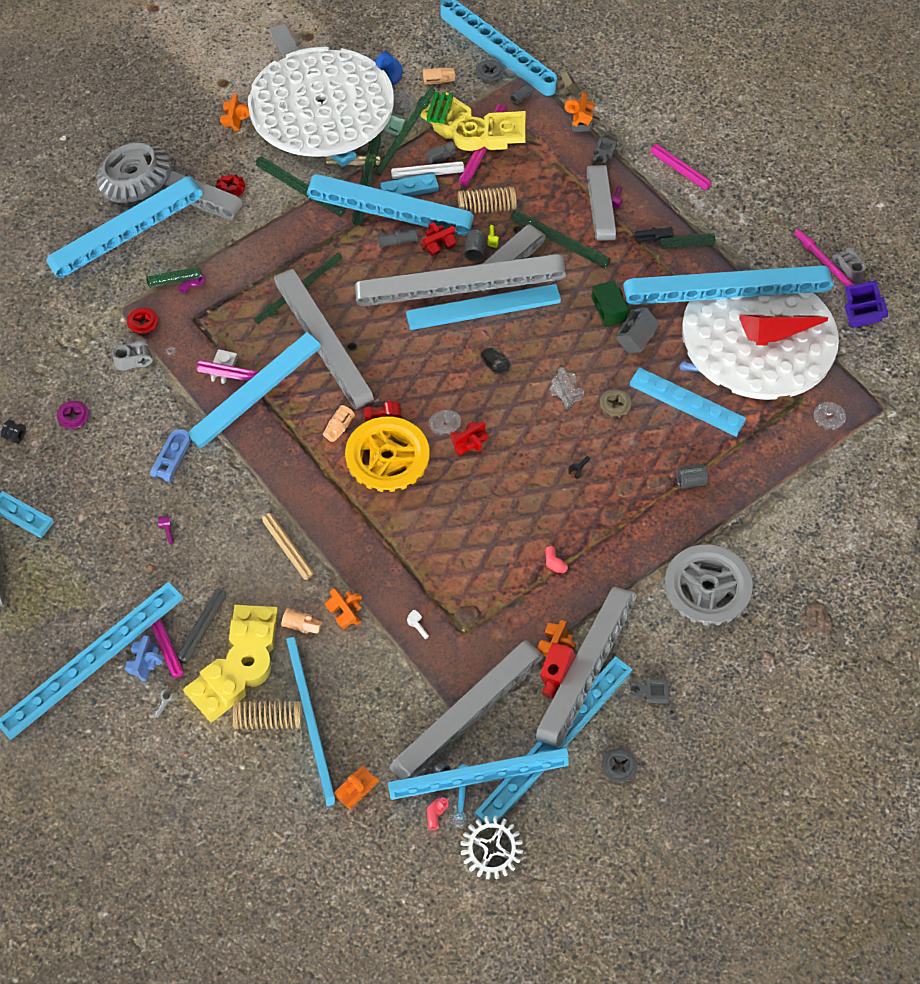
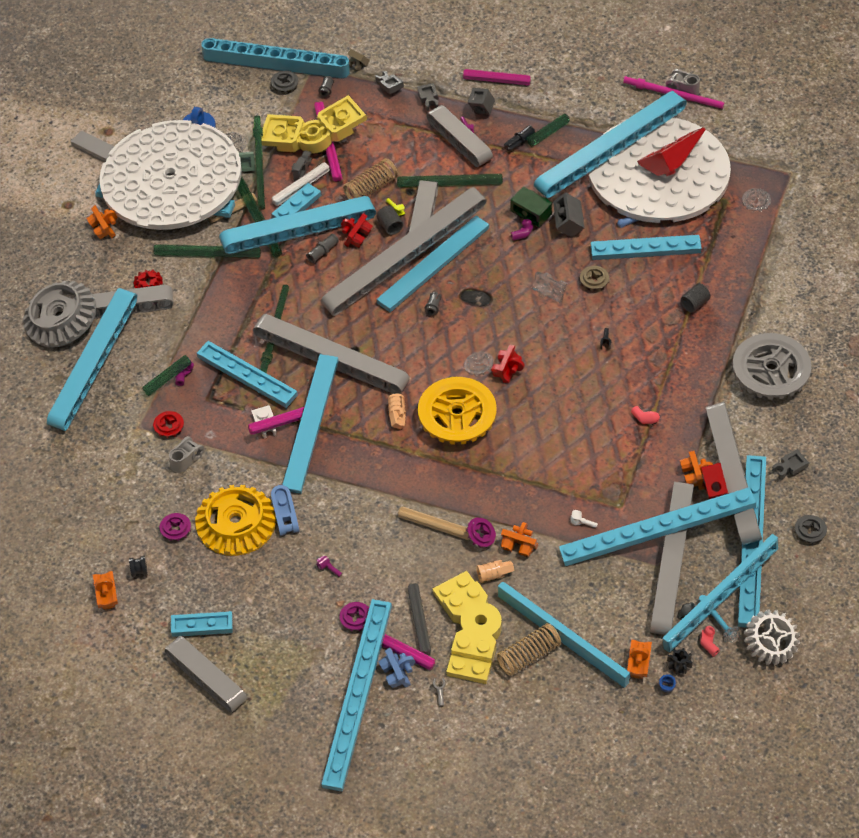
camera: 30 degrees left, 5 degrees down
(142, 448) = (224, 535): none -> yellow gear
(150, 579) = (349, 611): none -> magenta gear
(241, 315) = (247, 374): none -> medium azure plate
(326, 579) = (485, 528): none -> magenta gear
(359, 831) = (668, 679): none -> blue hinge
(389, 409) = (427, 379): red leg -> none
(392, 808) = (679, 661): none -> black gear
(438, 75) = (246, 106): light nougat hinge -> none
(448, 98) = (271, 120): green tile -> none
(450, 344) = (431, 307): none -> dark grey pin
(475, 674) = (657, 526): none -> medium azure plate
(580, 109) = (388, 73): orange hips -> none
(587, 324) = (524, 232): none -> magenta arm
(644, 180) = (481, 101): none -> dark grey brick
(864, 304) = (720, 104): dark purple plate -> none

